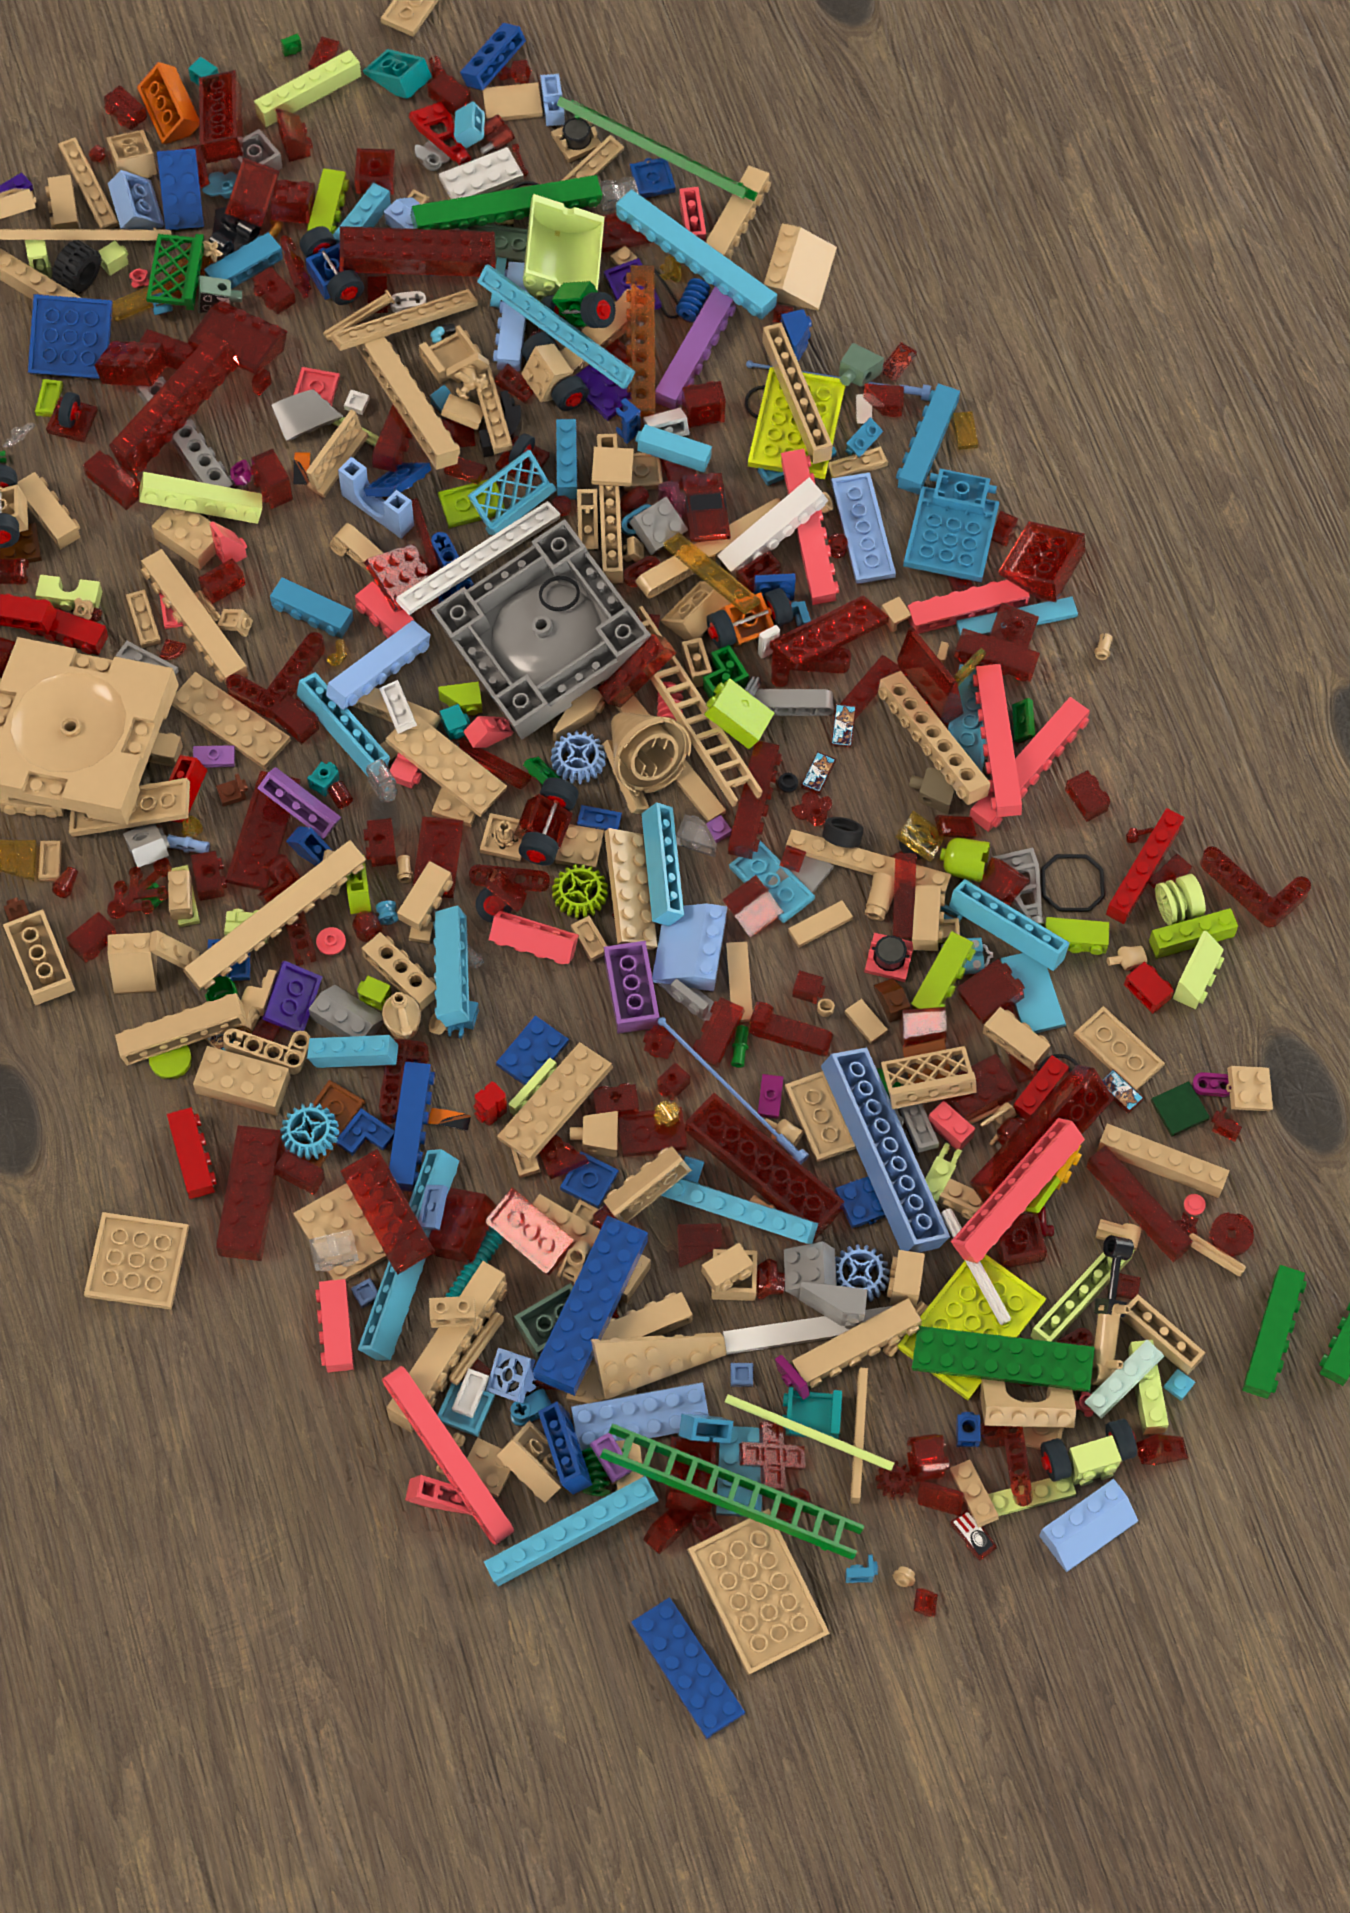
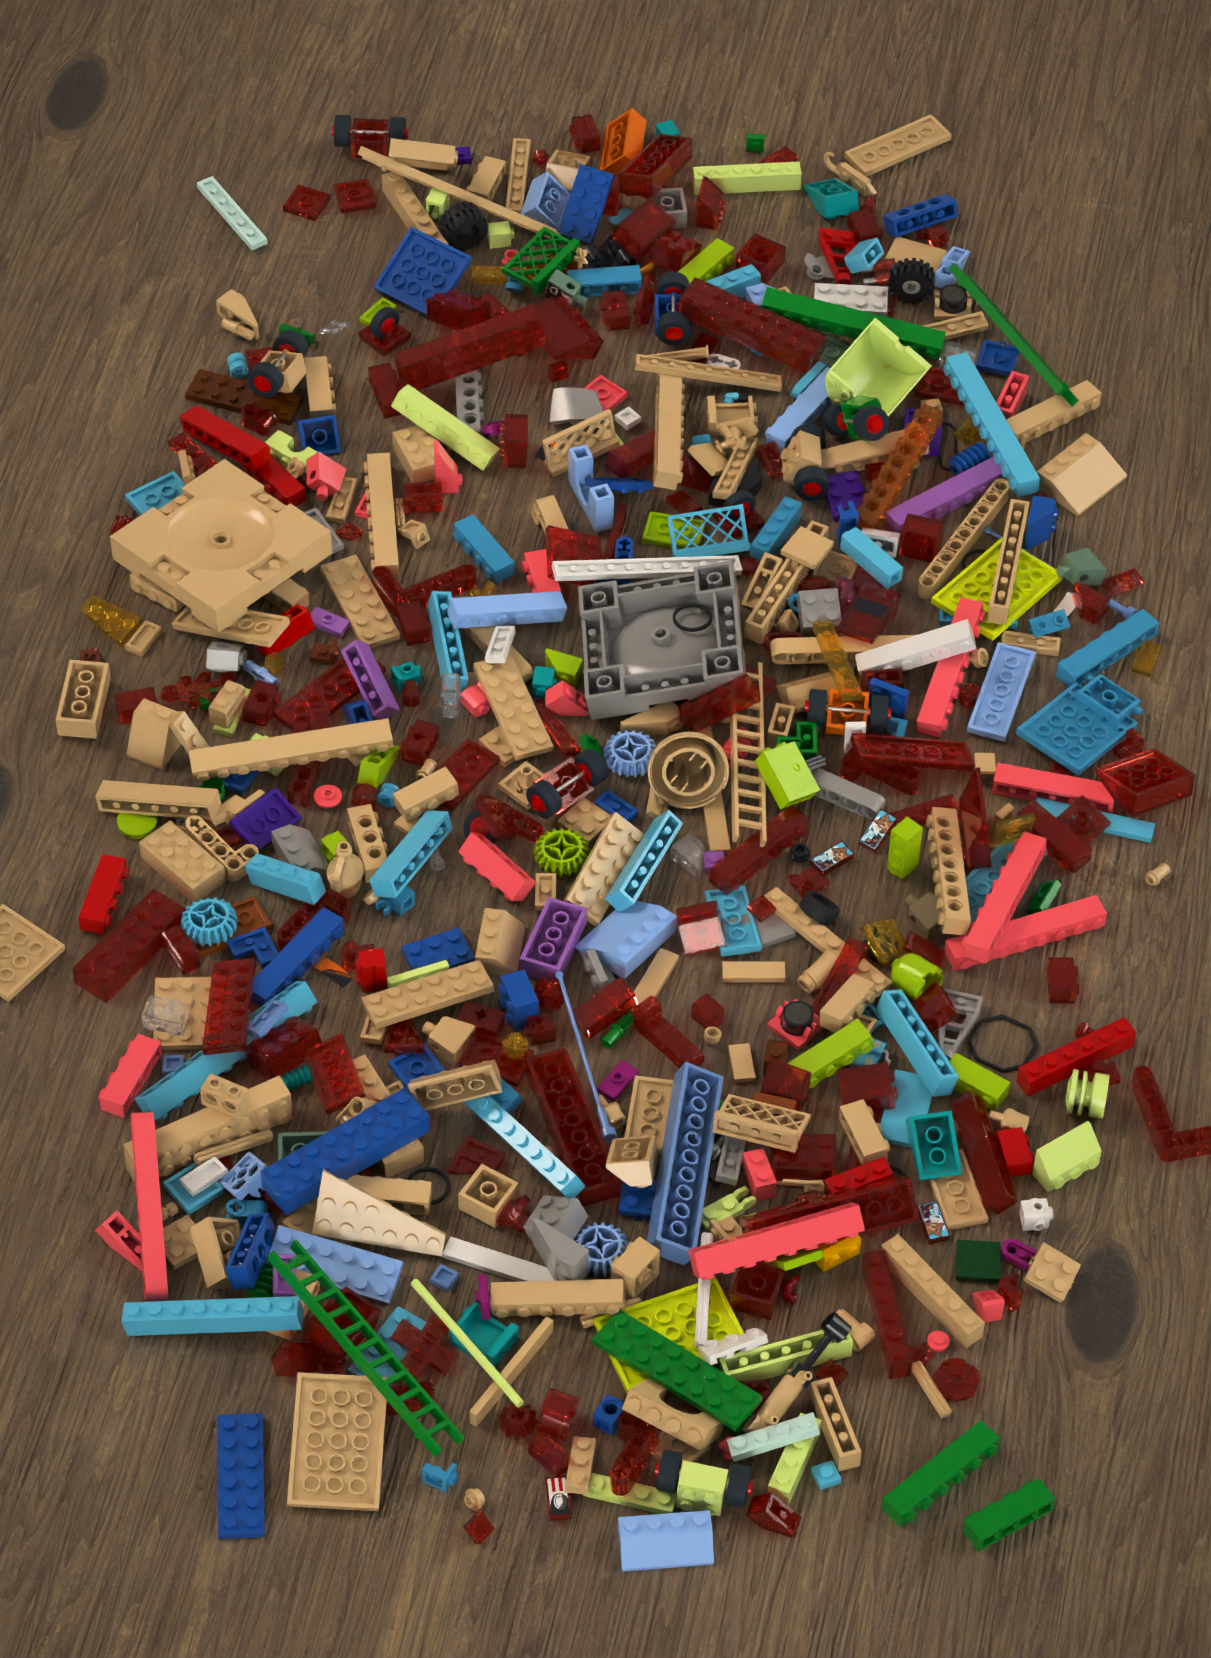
camera: 30 degrees right, 15 degrees down
(65, 882) = (143, 658): clear red cone -> none
(79, 559) = (319, 434): none -> blue slope
(115, 604) = (324, 475): none -> coral torso
(401, 42) = (850, 176): none -> tan plate
(463, 1090) = (350, 954): none -> clear red plate
(531, 132) = (912, 280): none -> black wheel
(556, 326) = (831, 426): medium azure plate -> none
(582, 1013) = (500, 942): none -> tan slope
(640, 1065) = (517, 999): none -> blue brick
(669, 1271) = (431, 1169): none -> black piece
(706, 1428) = (379, 1294): dark azure piece -> none
(727, 1268) = (481, 1179): tan brick -> none
(737, 342) = (963, 539): none -> tan beam
(841, 1173) = (634, 1160): none -> tan slope
(884, 735) = (904, 848): none -> lime brick
(1033, 1312) = (726, 1348): none -> white wing
(1082, 1018) = (934, 1145): none -> teal slope
(1126, 1002) = (983, 1152): none -> clear red brick
(1186, 934) = (1109, 1131): lime brick -> none
(1203, 1039) = (1035, 1214): none -> white brick
(1214, 1146) = (988, 1305): none -> coral slope

